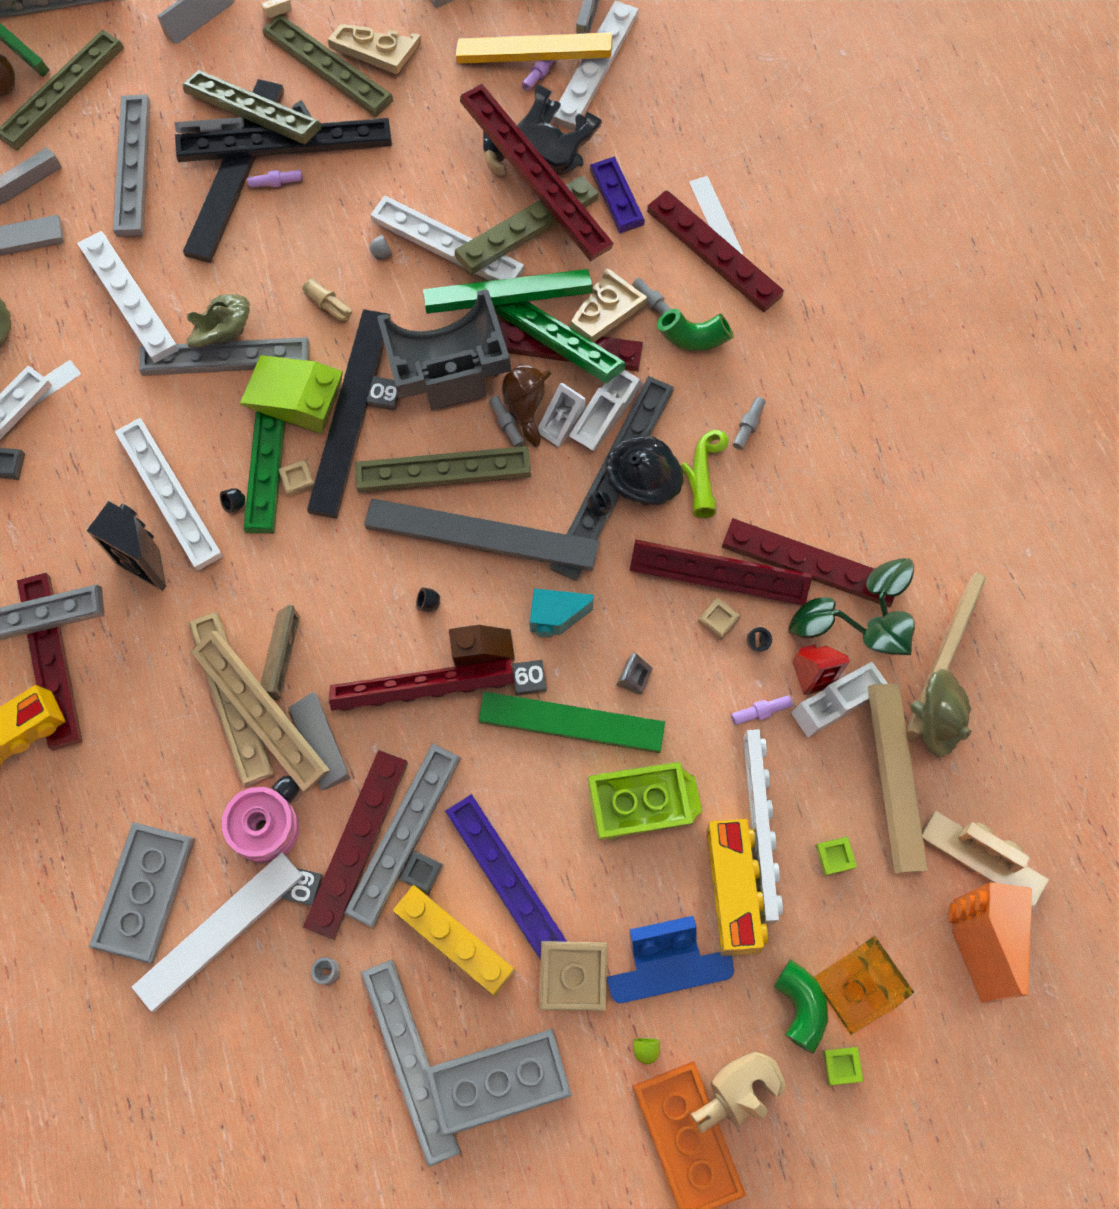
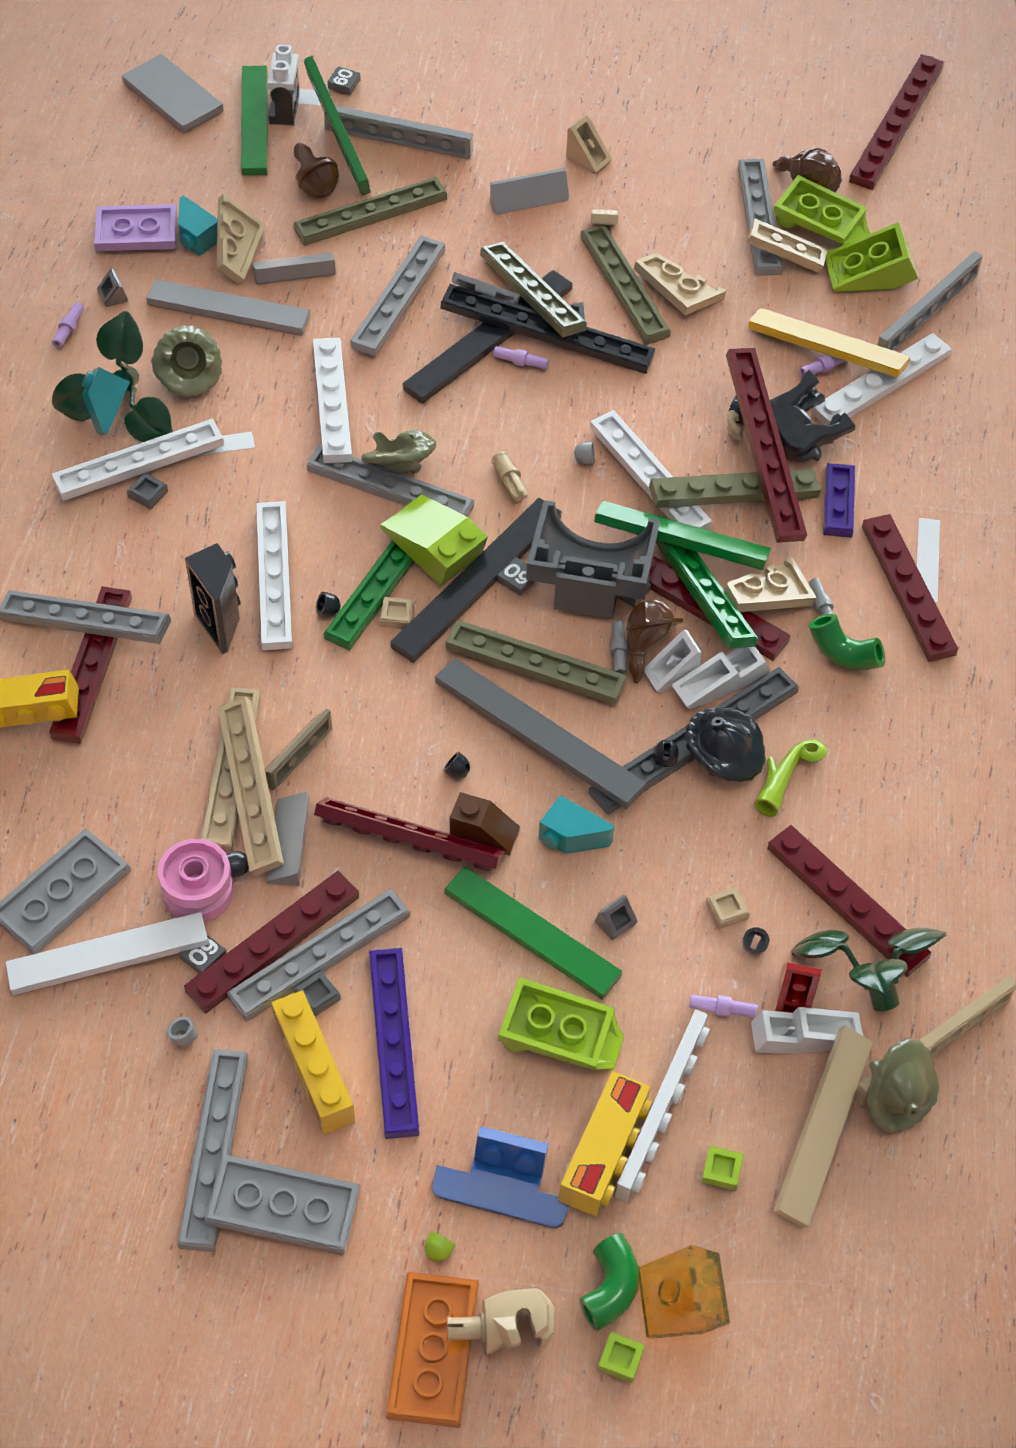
camera: 25 degrees right, 15 degrees down
(529, 677) = (514, 875): dark grey tile -> none
(573, 976) = (406, 1146): tan plate -> none
(720, 572) = (751, 866): dark red plate -> none
(749, 423) = (856, 750): light grey bar -> none
(984, 853) = (877, 1241): tan bracket -> none
(994, 938) = (833, 1286): orange slope -> none

